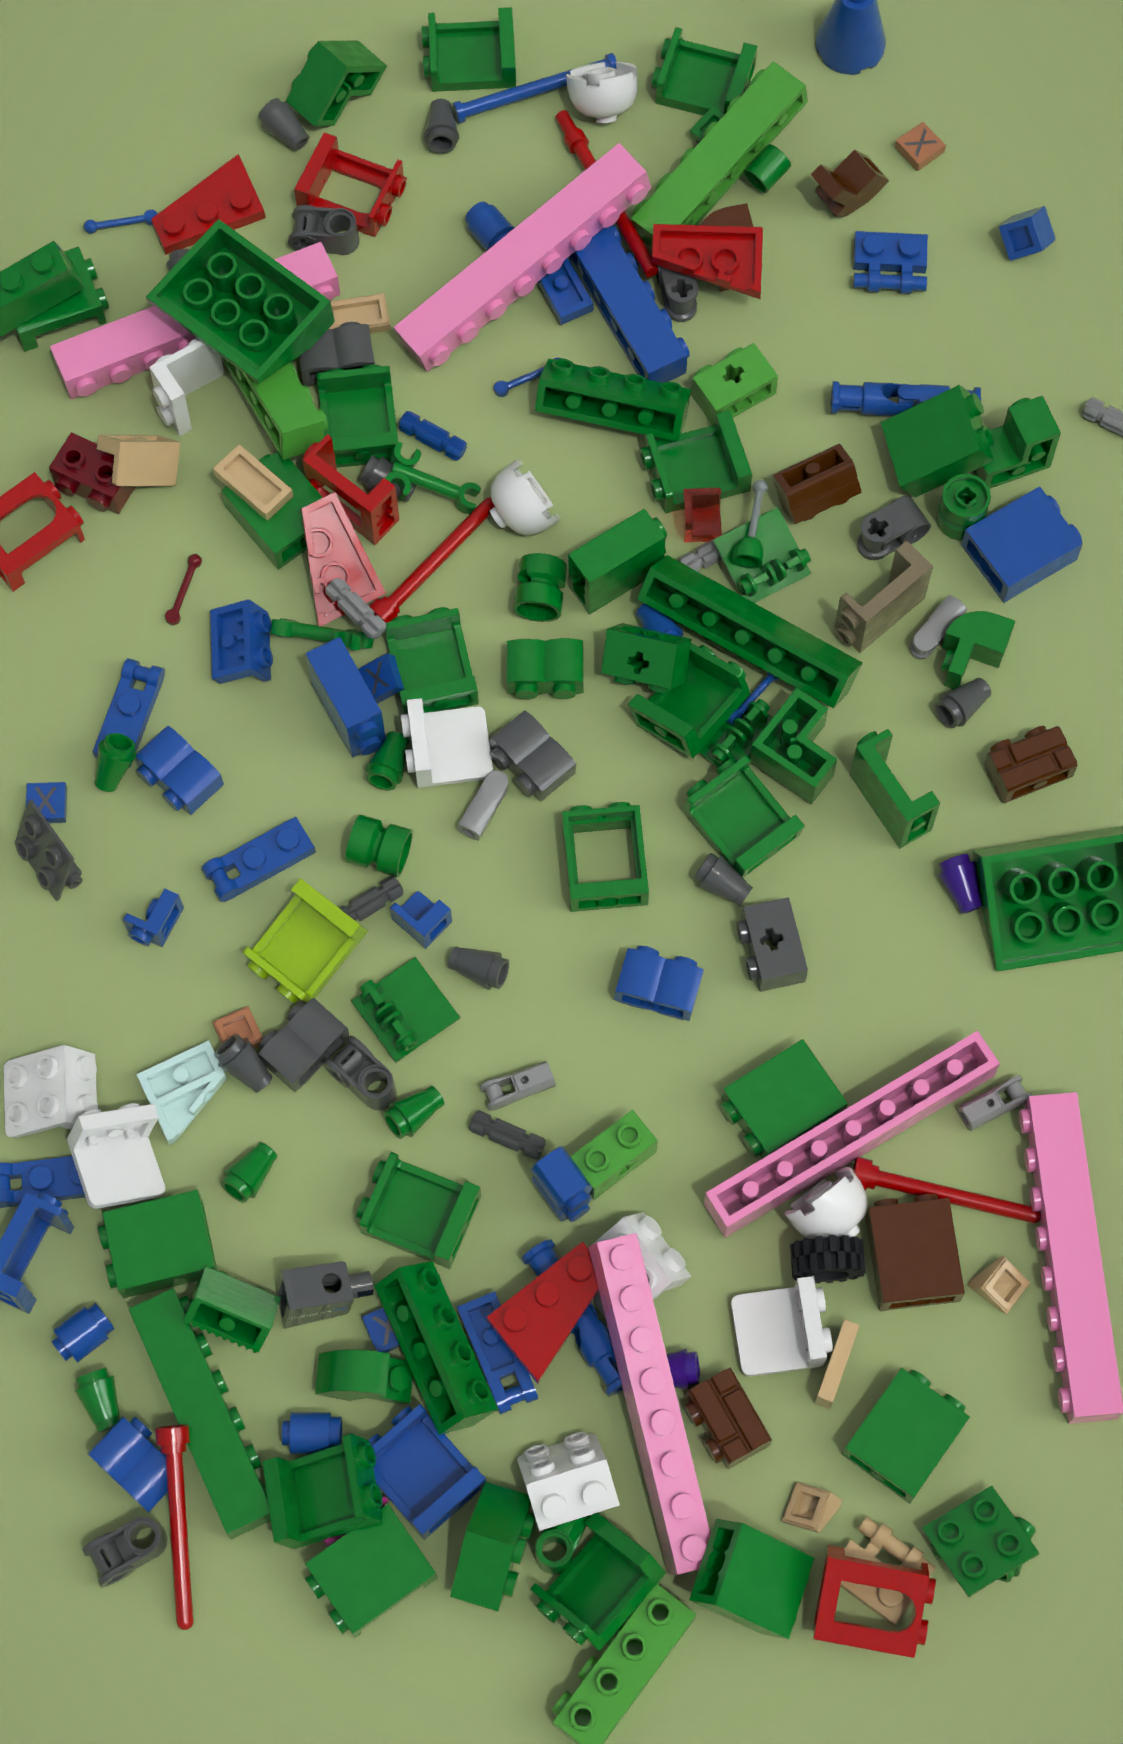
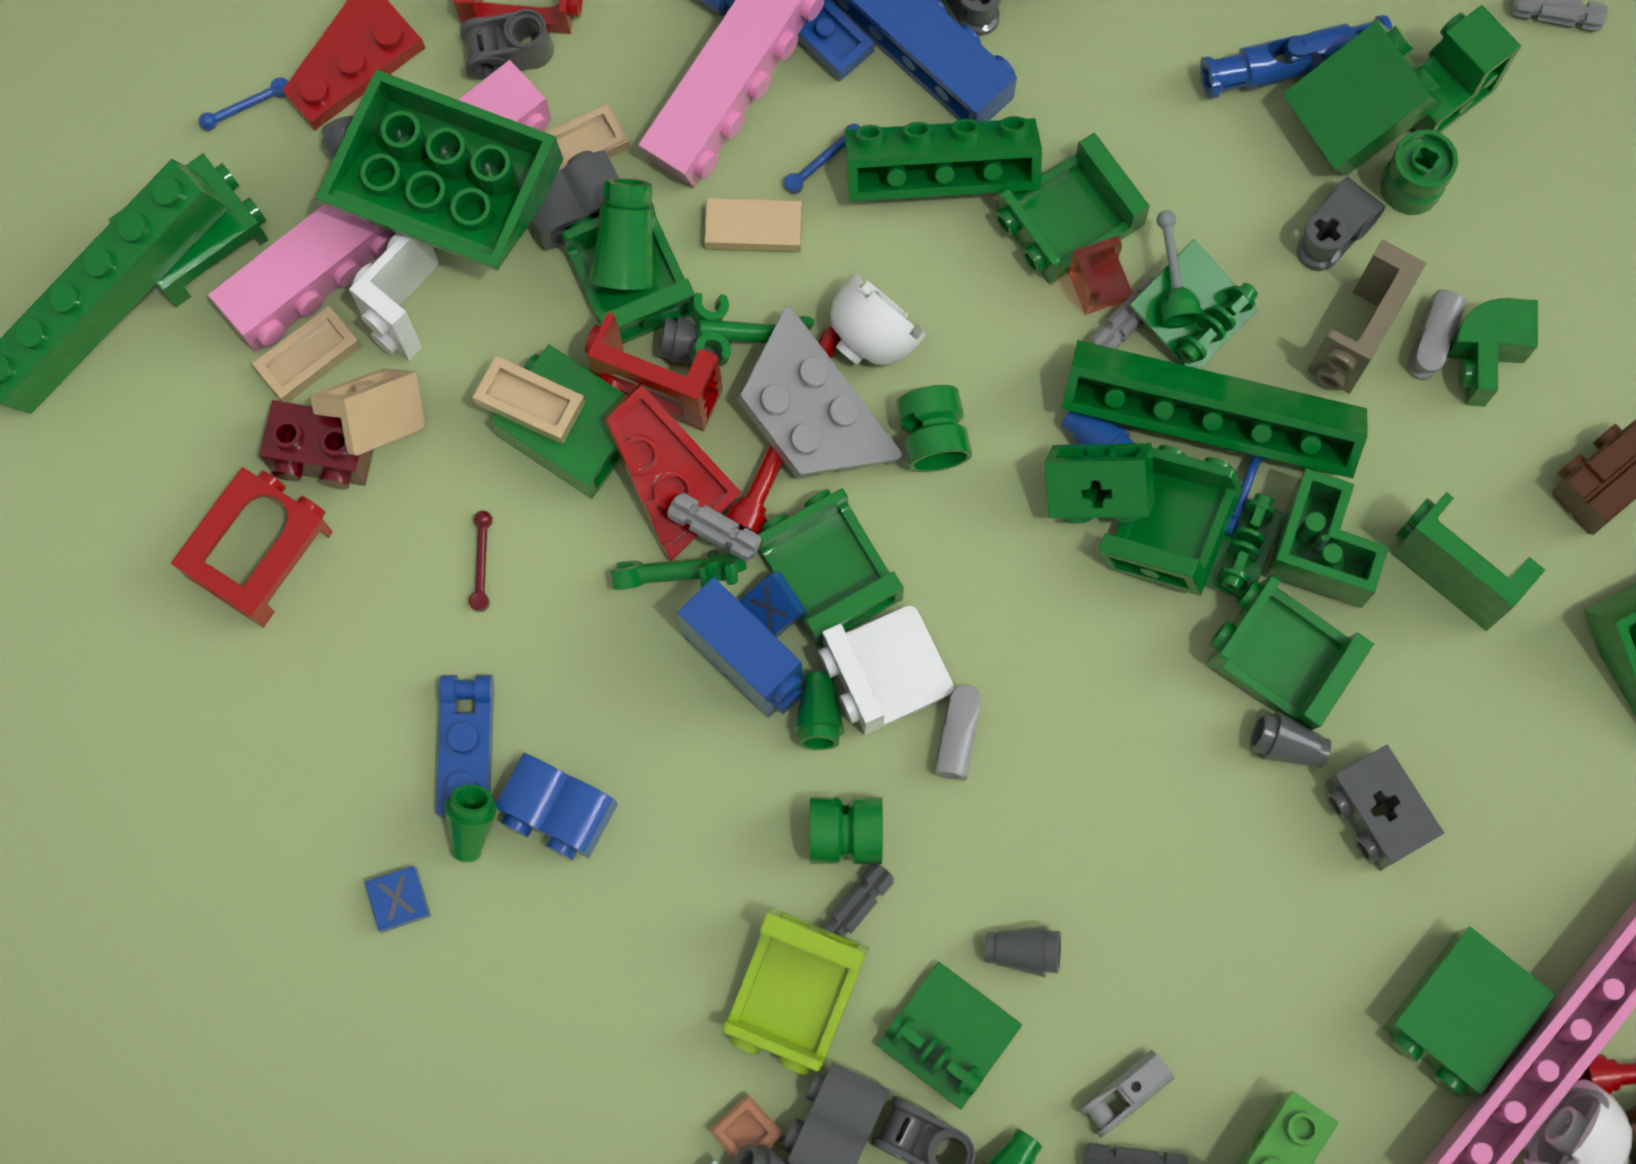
camera: 15 degrees left, 5 degrees up
(46, 853) = (405, 961): dark grey hinge -> none
(107, 410) = (306, 355): none -> tan tile
(161, 917) = (598, 1008): blue bracket -> none
(240, 642) = (578, 611): blue bracket -> none
(259, 859) = (696, 891): blue plate -> none
(283, 409) = (538, 294): bright green brick -> none
(360, 388) = (624, 237): none -> green plant
(422, 918) = (928, 906): blue panel -> none
(432, 435) = (729, 269): blue axle -> none
(456, 548) = (810, 406): none -> light grey wing
(461, 409) = (753, 225): none -> tan tile
(532, 756) = (997, 651): dark grey brick -> none
(545, 667) = (975, 531): green brick -> none
(607, 893) = (1129, 698): green window -> none
(616, 560) = (1022, 366): green brick -> none
(659, 983) = (1258, 902): blue brick -> none
(734, 383) = (1082, 95): bright green brick -> none
(817, 484) = (1231, 194): reddish brown brick -> none
(962, 702) = (1501, 423): dark grey cone -> none
(962, 882) = (1583, 654): dark purple cone -> none
(1022, 544) = (1503, 198): blue brick -> none

